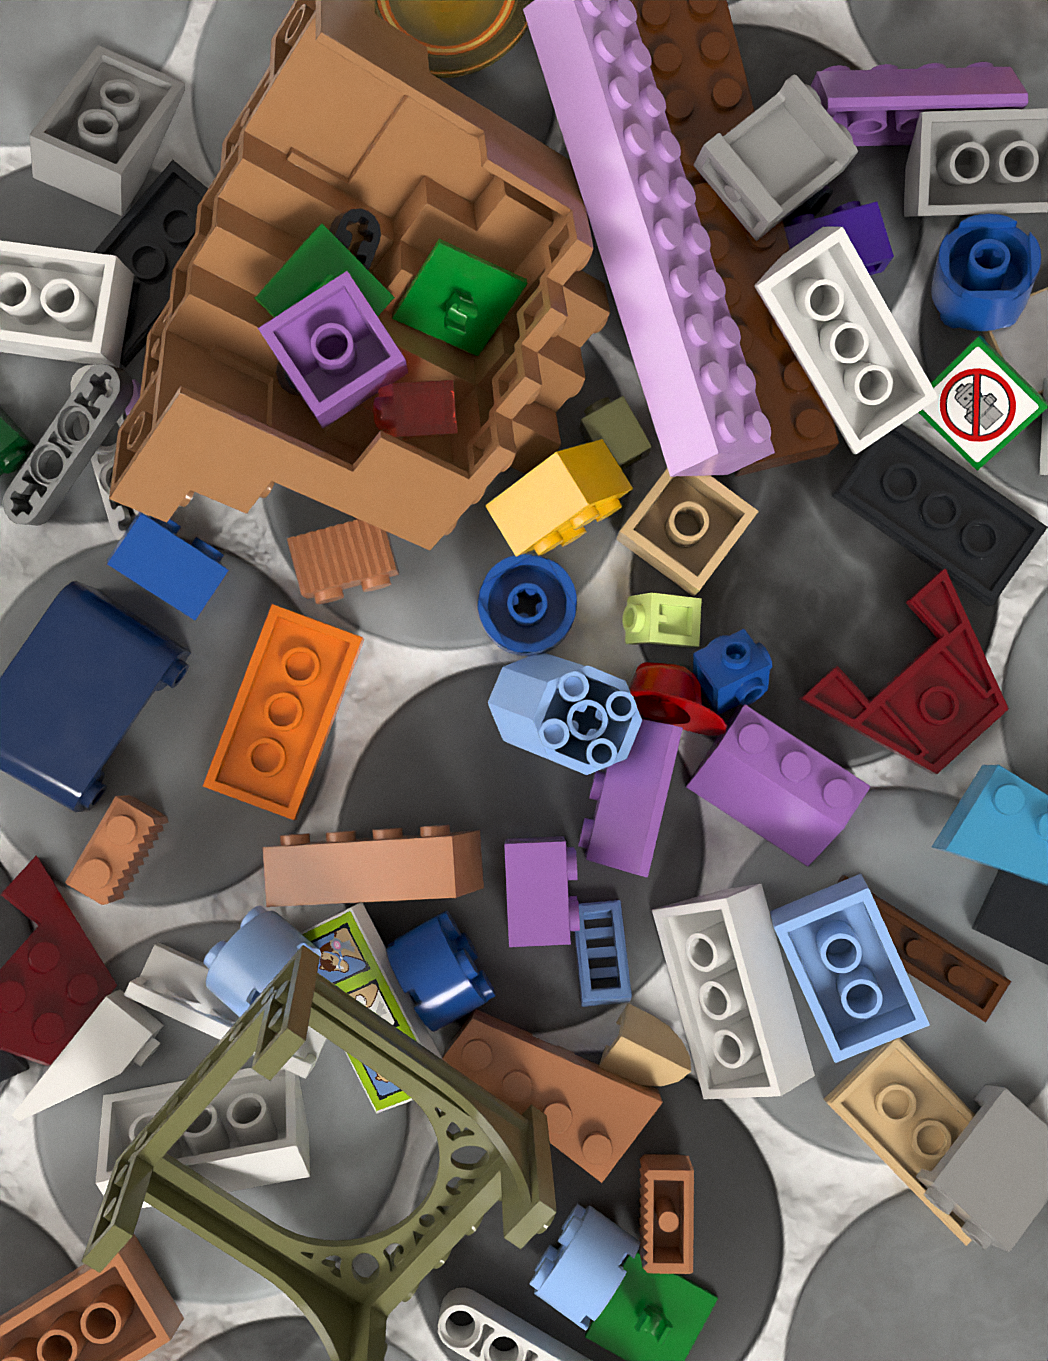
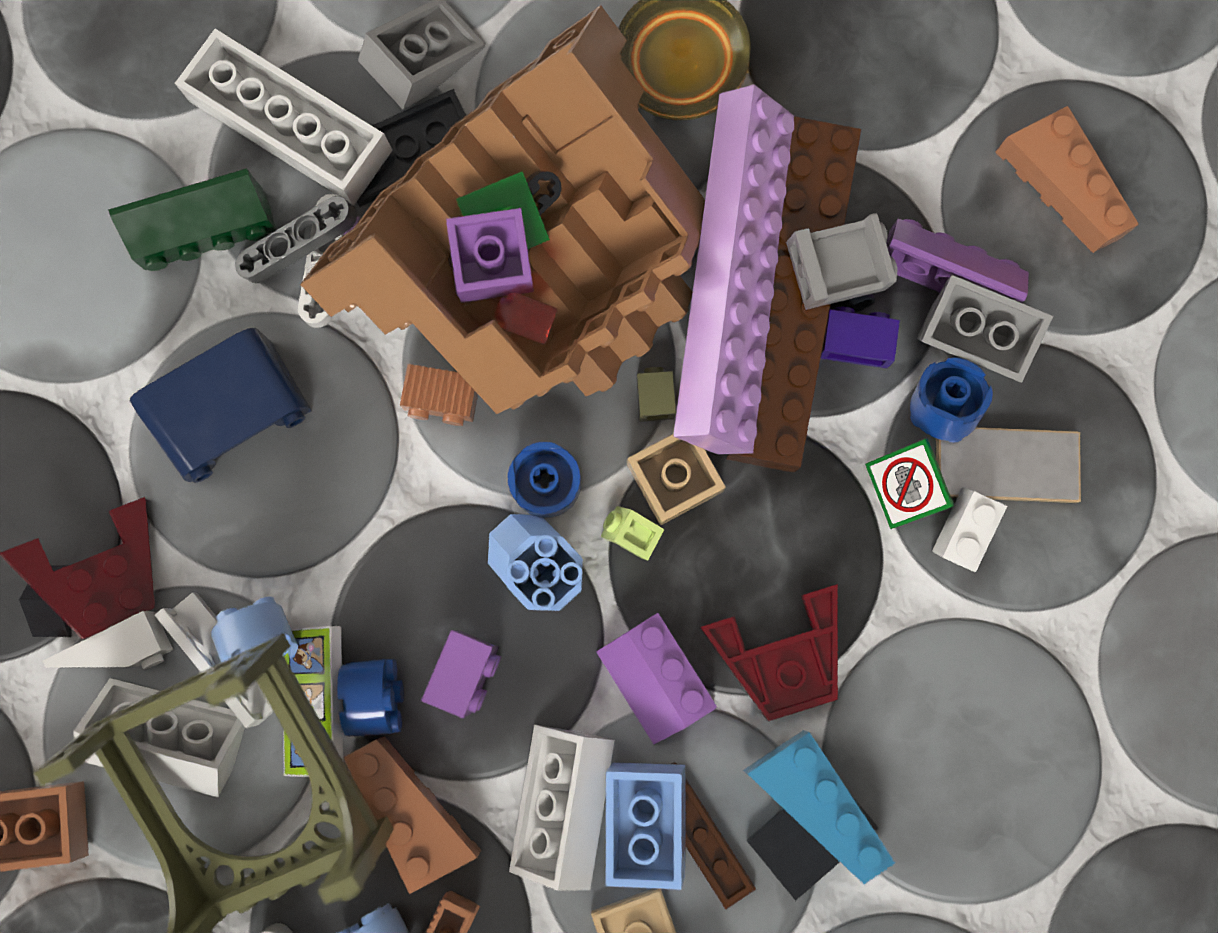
camera: 20 degrees right, 5 degrees down
(116, 849) = (198, 517): nougat brick -> none
(168, 565) = (321, 345): blue brick -> none
(283, 712) = (351, 477): orange plate -> none
(373, 869) = (361, 608): nougat wedge -> none
(459, 297) = (592, 259): green piece -> none
(560, 498) = (597, 419): yellow brick -> none
(609, 995) = (475, 768): medium blue slope -> none
(632, 801) = (552, 642): medium lavender slope -> none
(646, 1050) = (484, 818): tan brick -> none
(673, 697) = (612, 585): red piece -> none
(732, 671) = (661, 587): blue brick -> none
(845, 337) = (834, 399): white slope -> none
(940, 512) = (852, 545): black tile -> none

